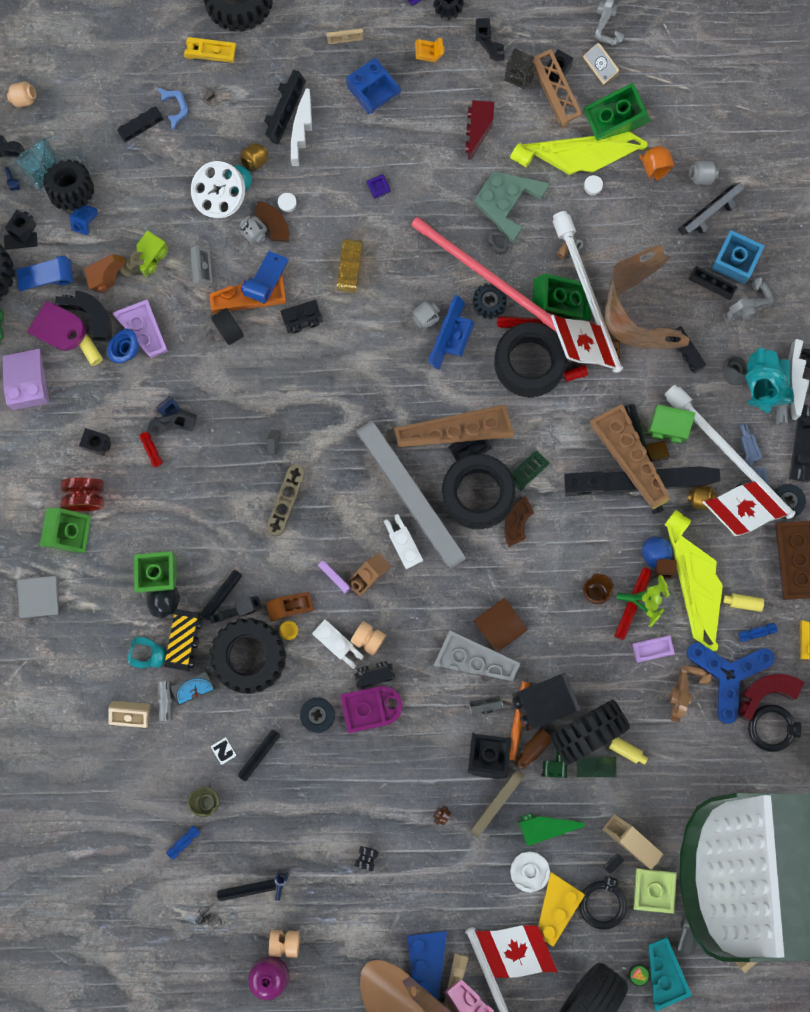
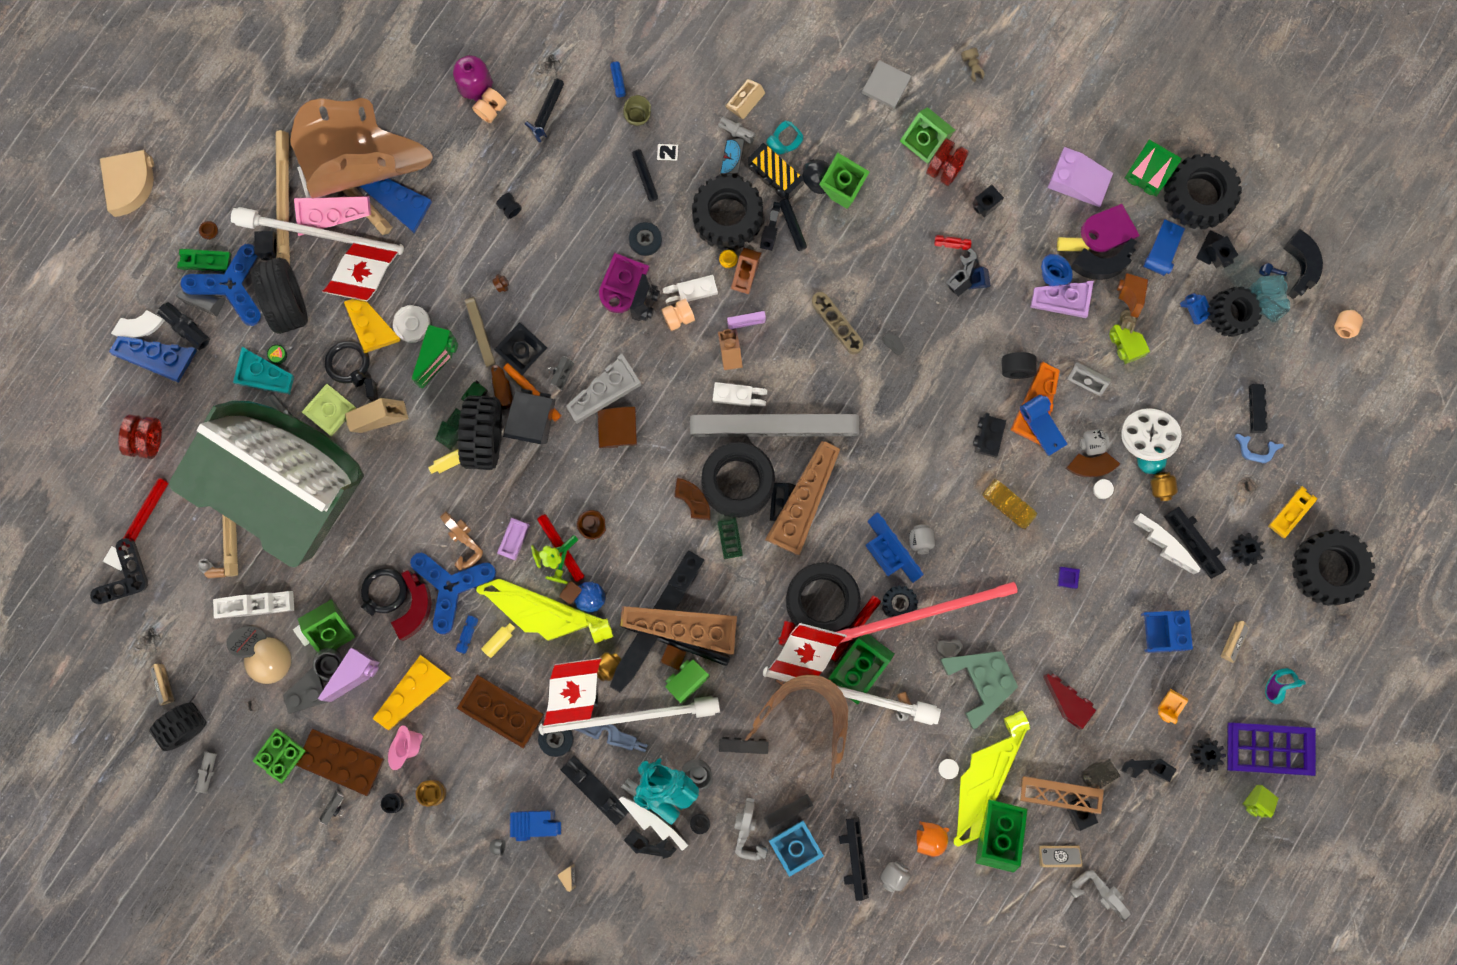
camera: 125 degrees right, 0 degrees up
(271, 68) = (1255, 550): none -> black gear
(768, 344) = (700, 821): none -> black wheel

